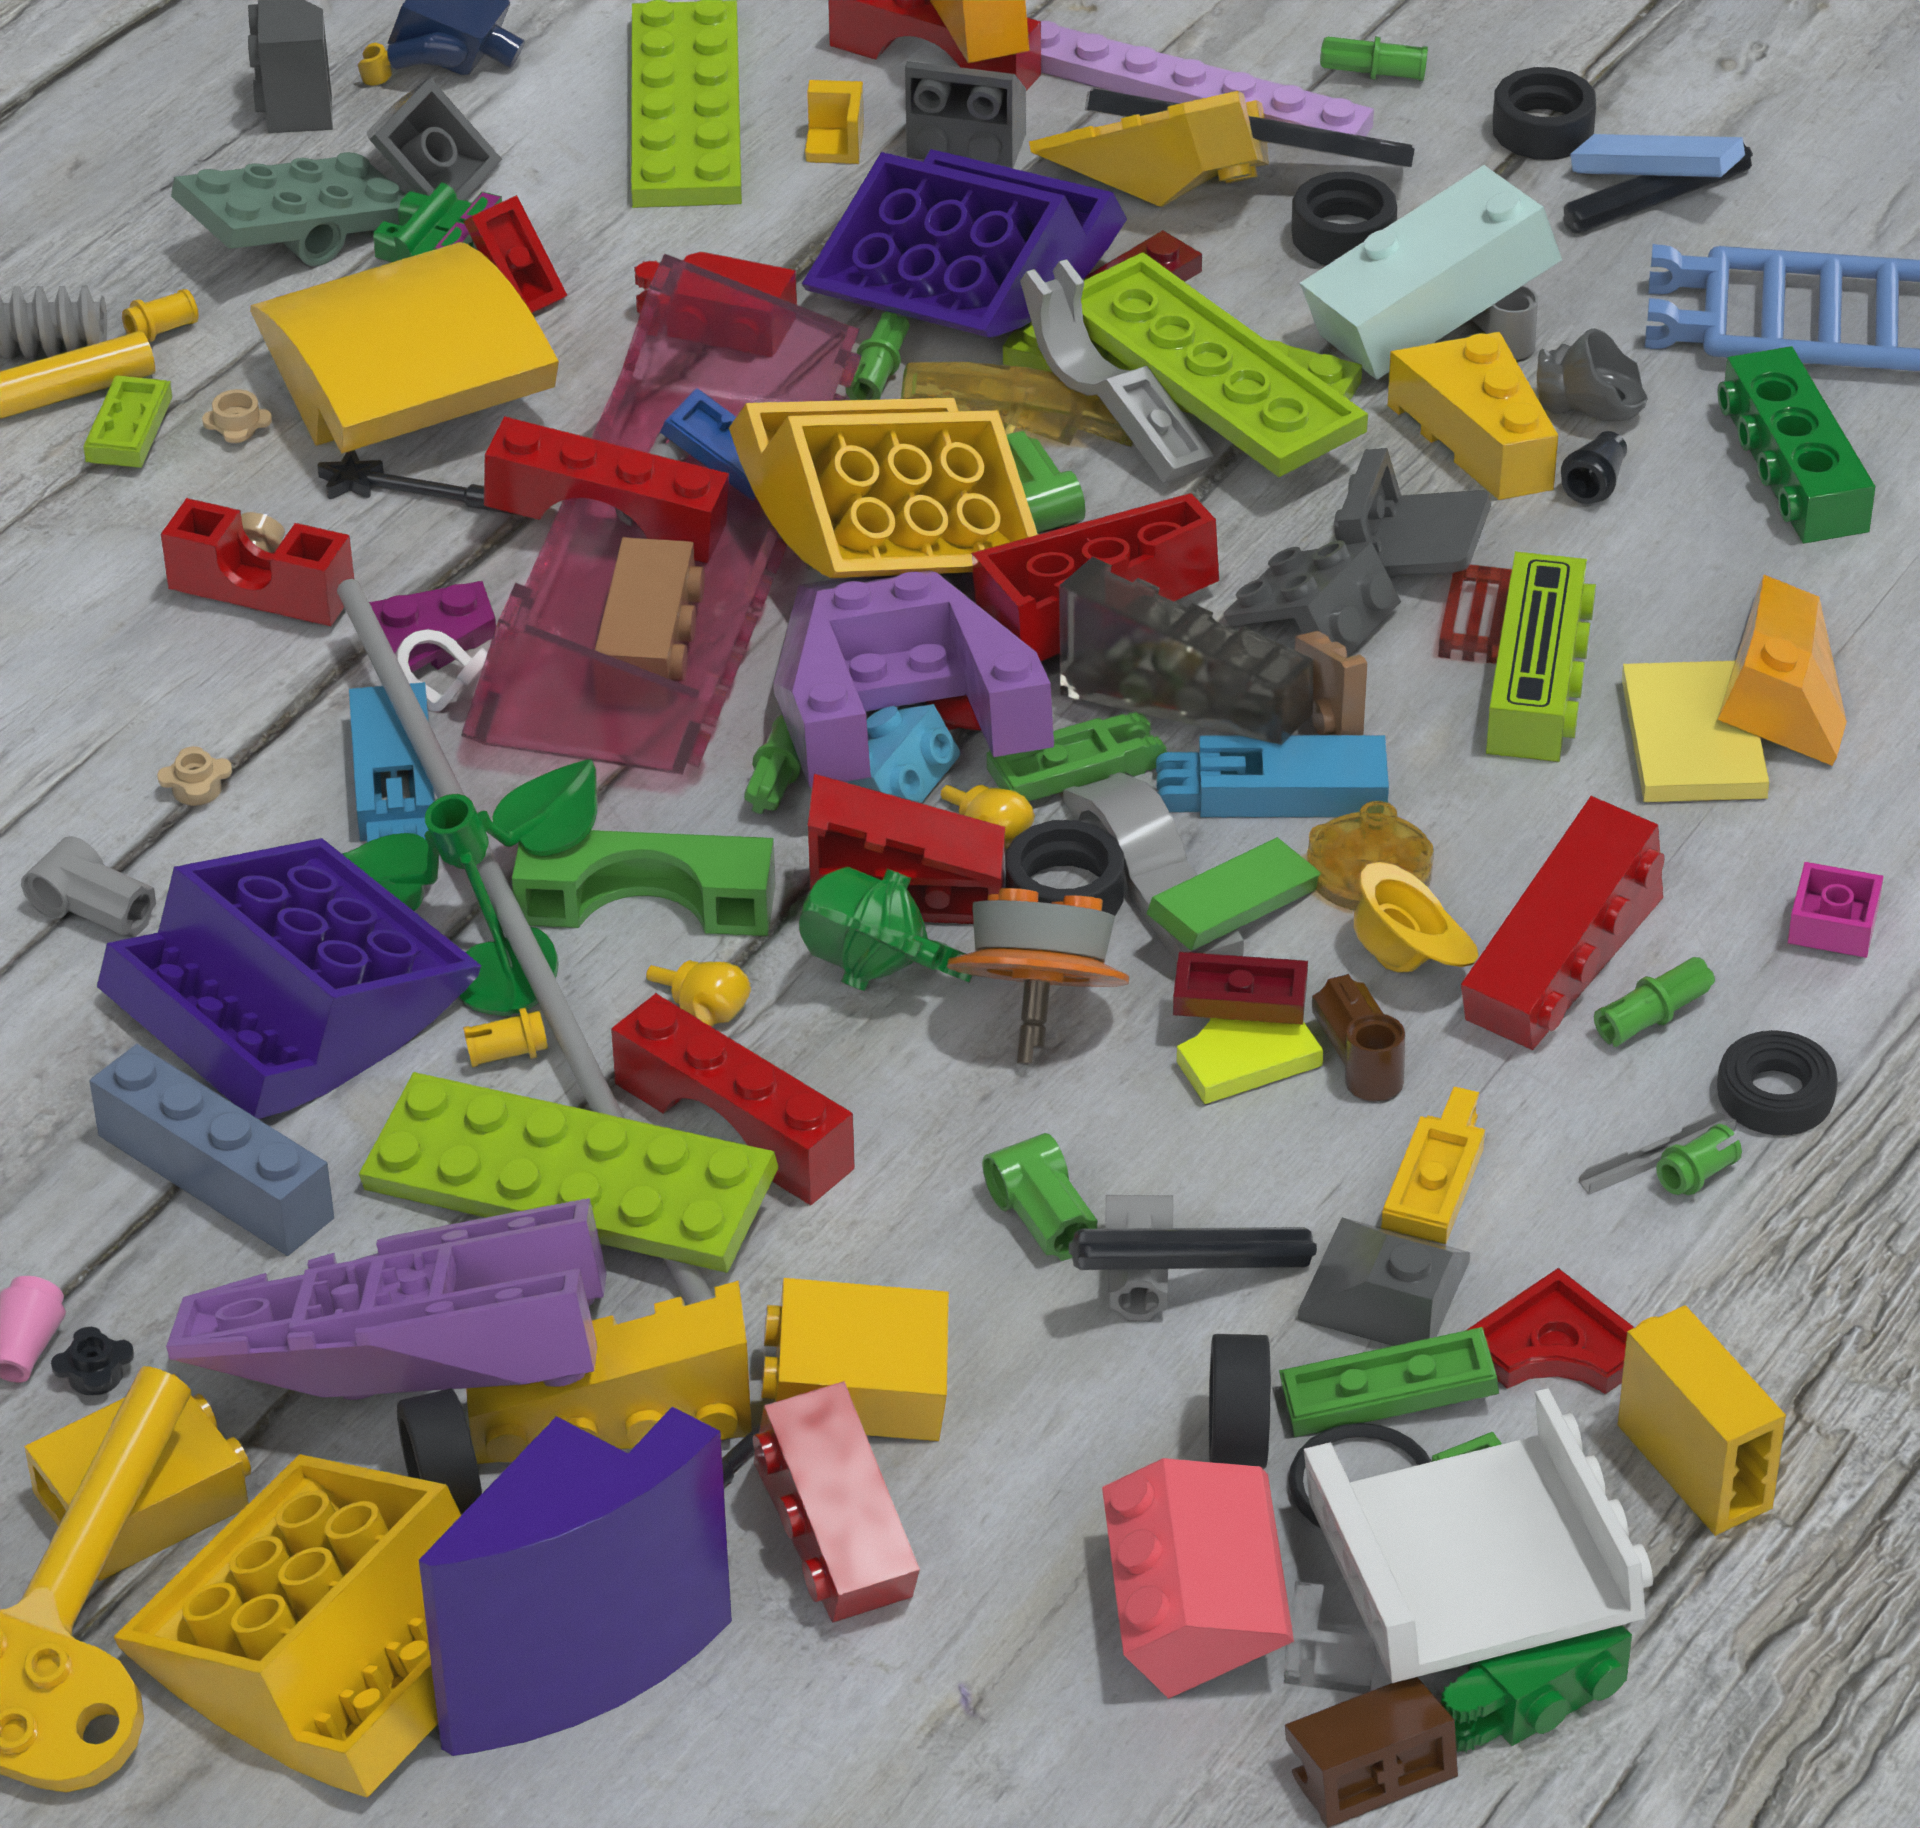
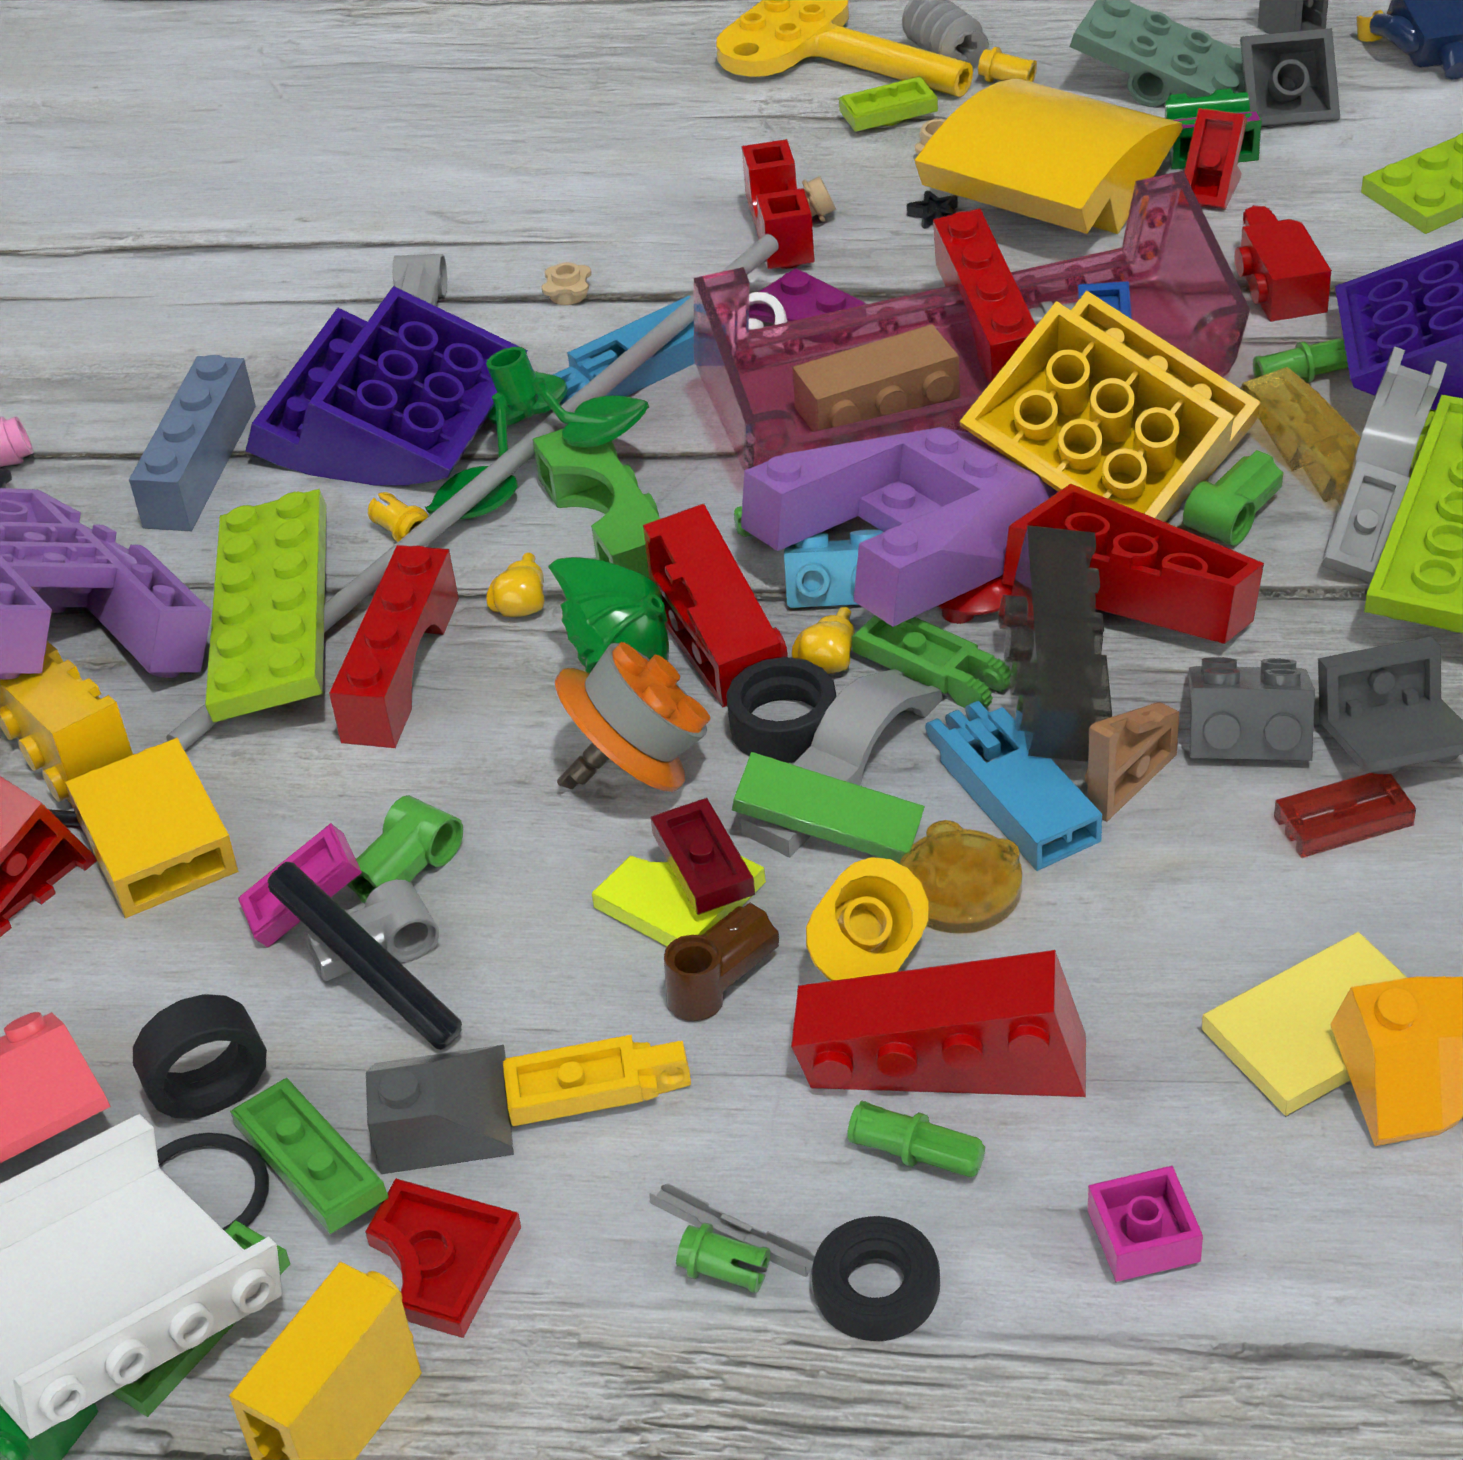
camera: 65 degrees right, 0 degrees up
(1039, 1276) = (323, 859): none -> dark pink tile
(1538, 656) = (1307, 868): lime brick -> none

